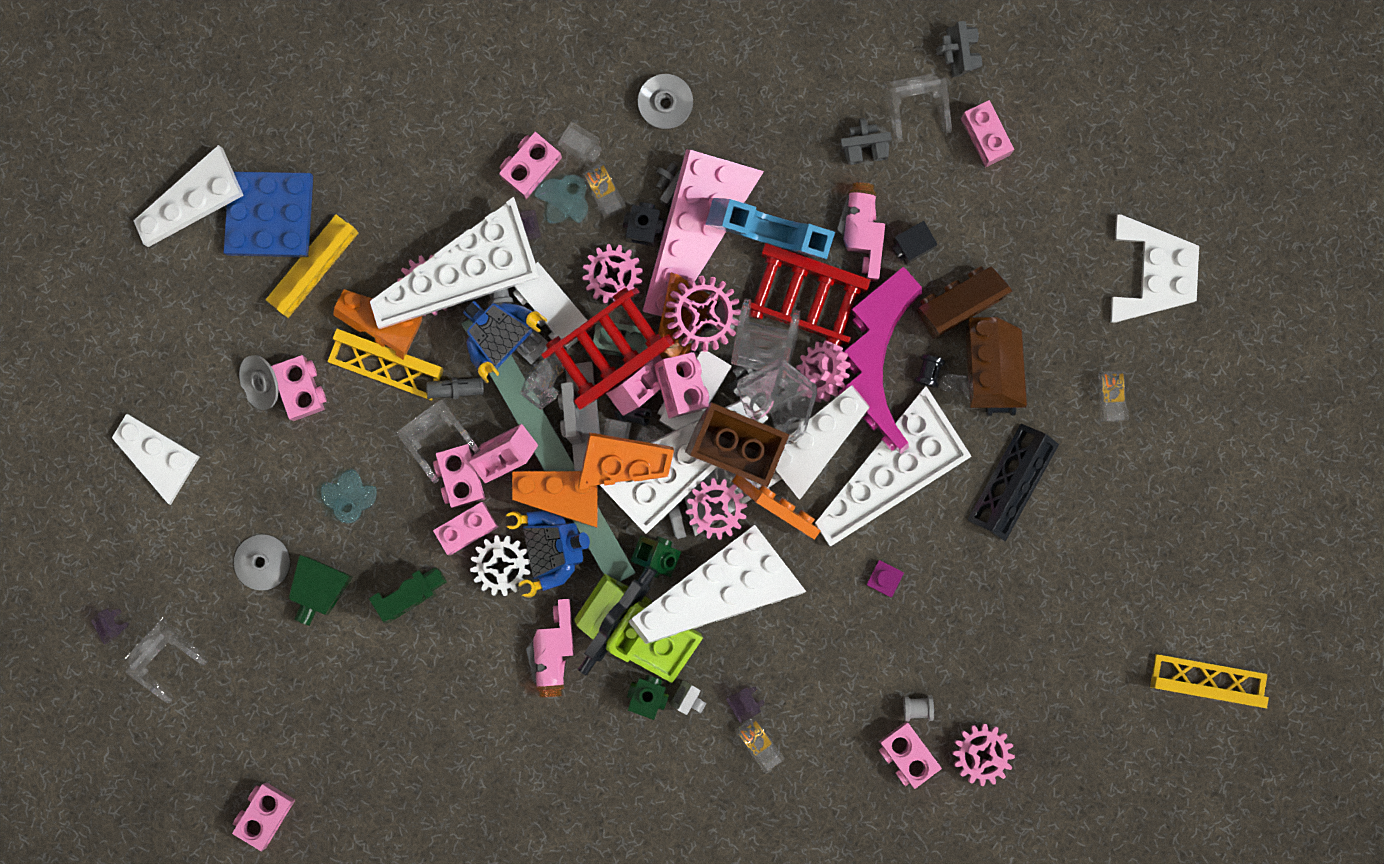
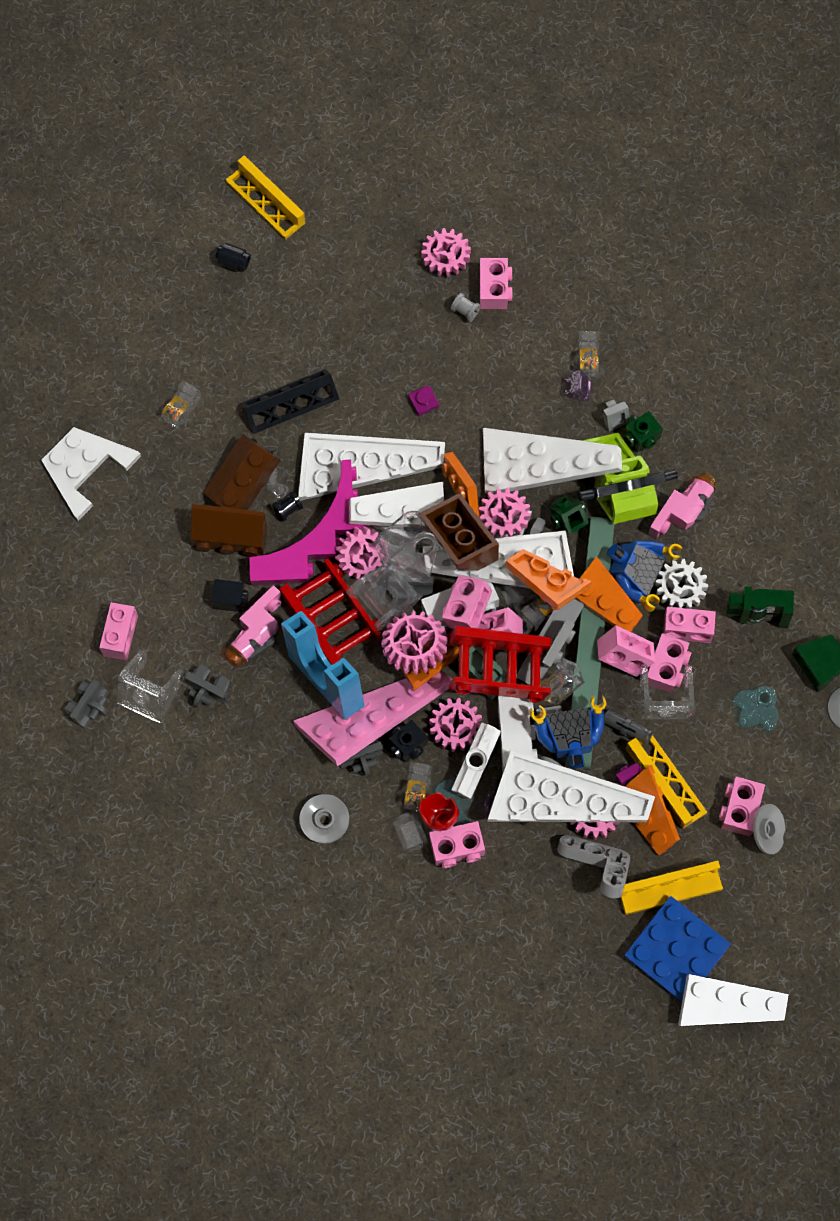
camera: 140 degrees left, 15 degrees down
(386, 246) = (600, 856): none -> light grey beam
(421, 341) = (627, 774): none -> magenta plate
(563, 174) = (438, 812): none -> red hair
(570, 265) = (481, 746): none -> white piece
(1189, 591) = (233, 257): none -> black brick

